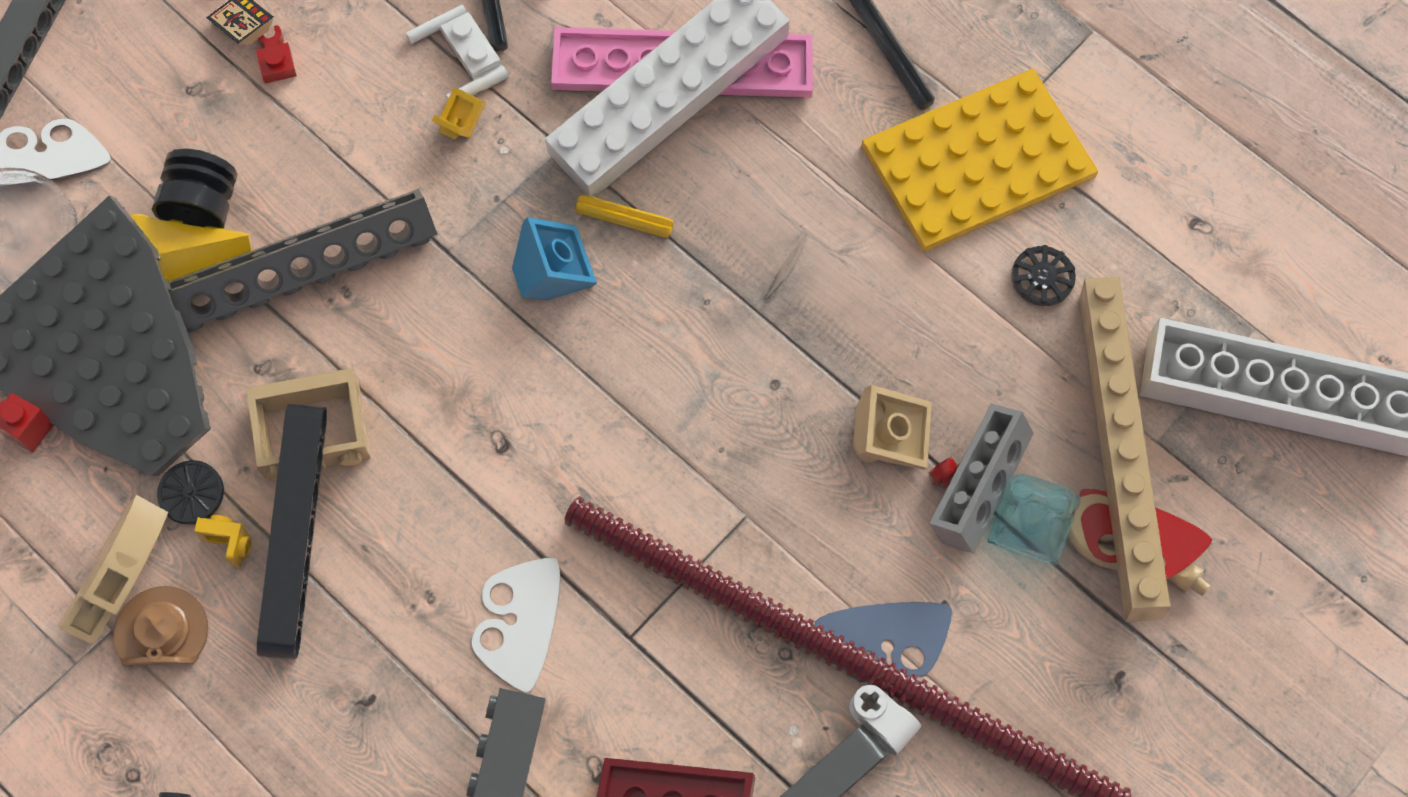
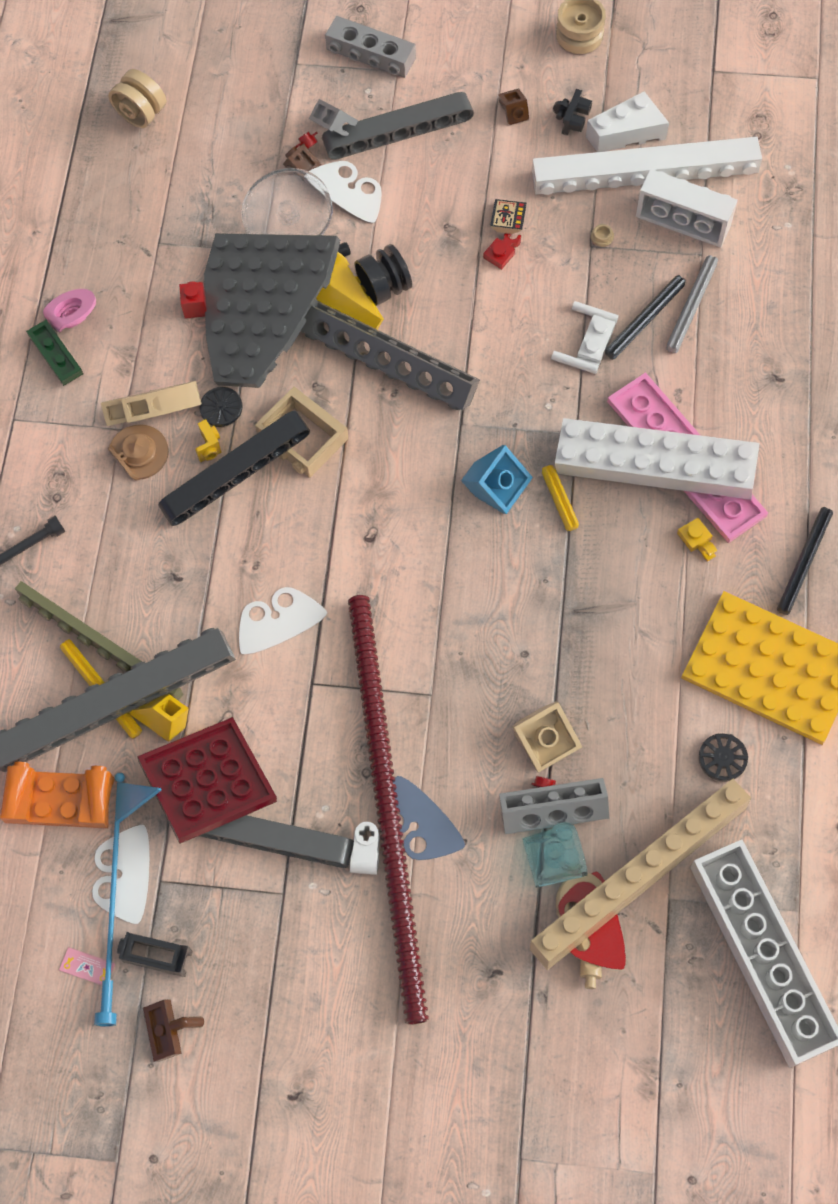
camera: 60 degrees right, 0 degrees up
(459, 114) = (546, 366): yellow bracket -> none
(779, 120) = (698, 537): none -> yellow plate

